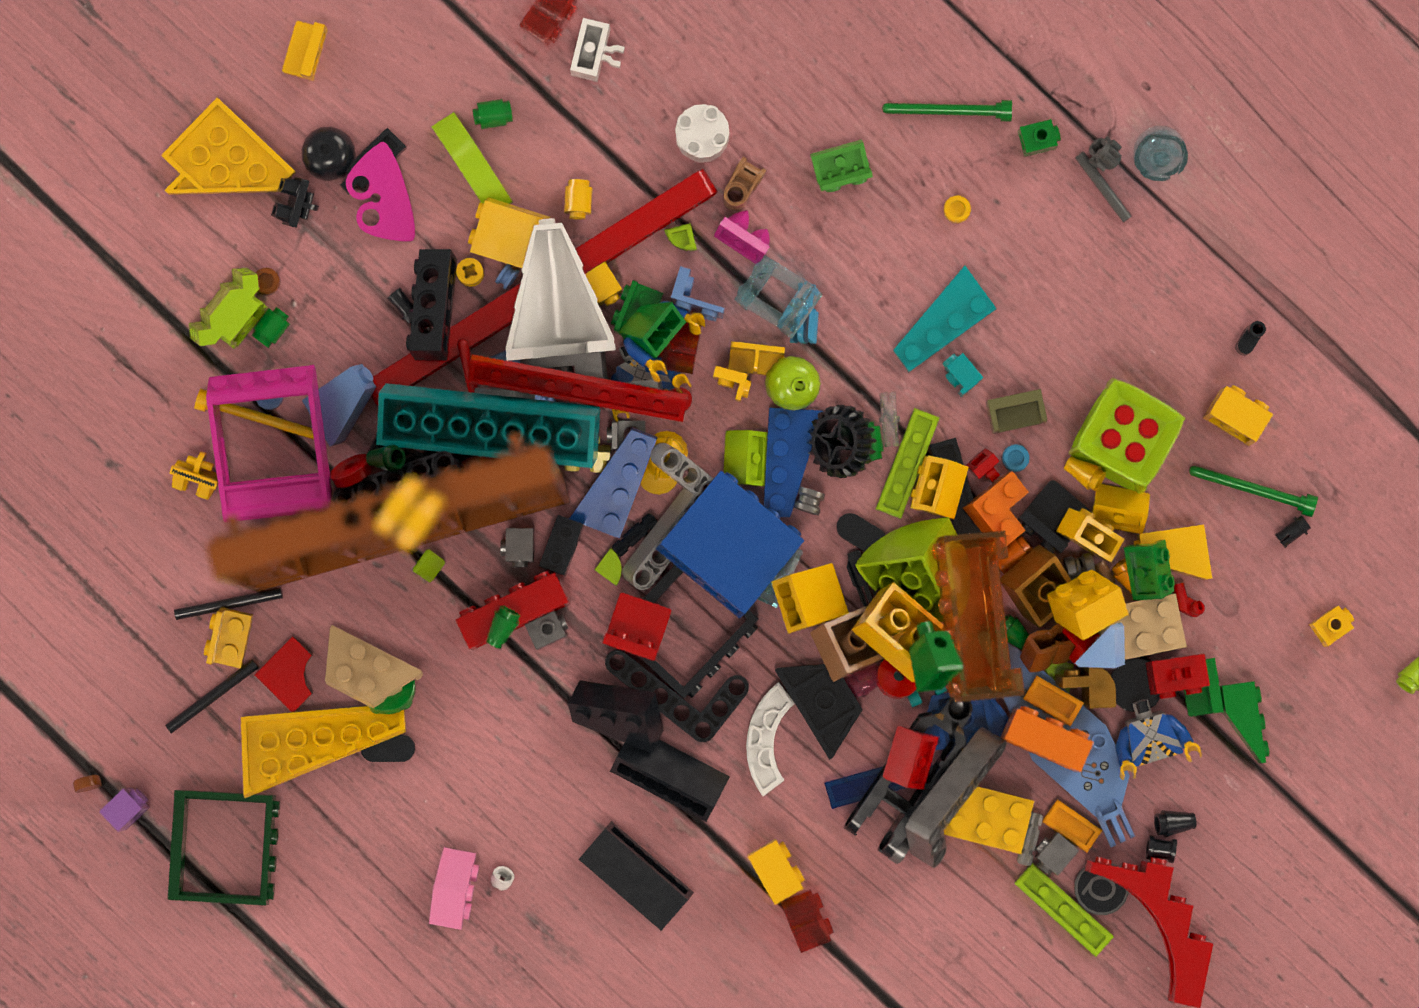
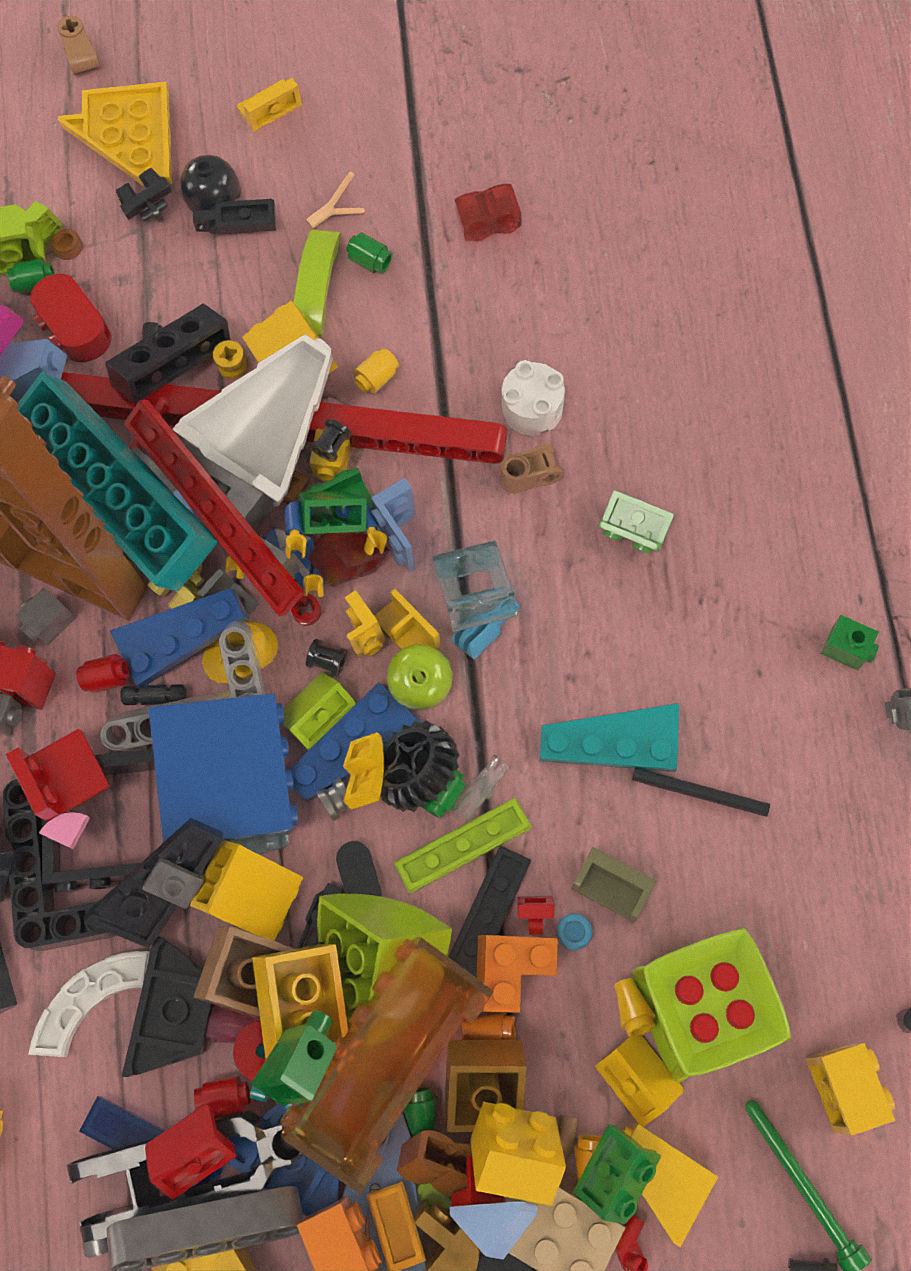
camera: 45 degrees right, 15 degrees down
(123, 124) = (77, 45): none -> medium nougat piece
(330, 335) = (70, 318): none -> red brick
(385, 179) = (233, 236): dark pink piece -> none
(430, 97) = (328, 209): none -> light nougat plant
(561, 545) = (75, 644): black brick -> none
(591, 50) = (497, 261): white brick -> none
(593, 548) = (103, 673): none -> red brick
(603, 277) = (331, 440): none -> black bush
(610, 567) = (103, 706): lime tile -> none
(668, 656) = (66, 828): none -> bright pink tile
(681, 237) = (437, 474): lime tile -> none
(721, 415) = (317, 650): none -> black bush
(734, 234) = (485, 508): dark pink tile -> none
(759, 638) = (139, 914): none -> black wing
(771, 627) = (173, 883): none -> flat silver bracket
(815, 468) = (366, 767): none -> yellow slope
(896, 716) = (224, 1096): none -> red brick
(939, 486) = (471, 892): yellow brick -> none
(957, 209) = (714, 648): yellow tile -> none
(961, 373) = (590, 802): teal brick -> none
(1001, 110) = (832, 592): green piece -> none
(1021, 310) = (701, 792): none -> black bar
(1046, 513) = (563, 1027): black bracket -> none
(1076, 566) = (541, 1095): flat silver wheel -> none
(1090, 534) = (586, 1083): yellow brick -> none
(1103, 187) = (879, 730): dark grey bar -> none

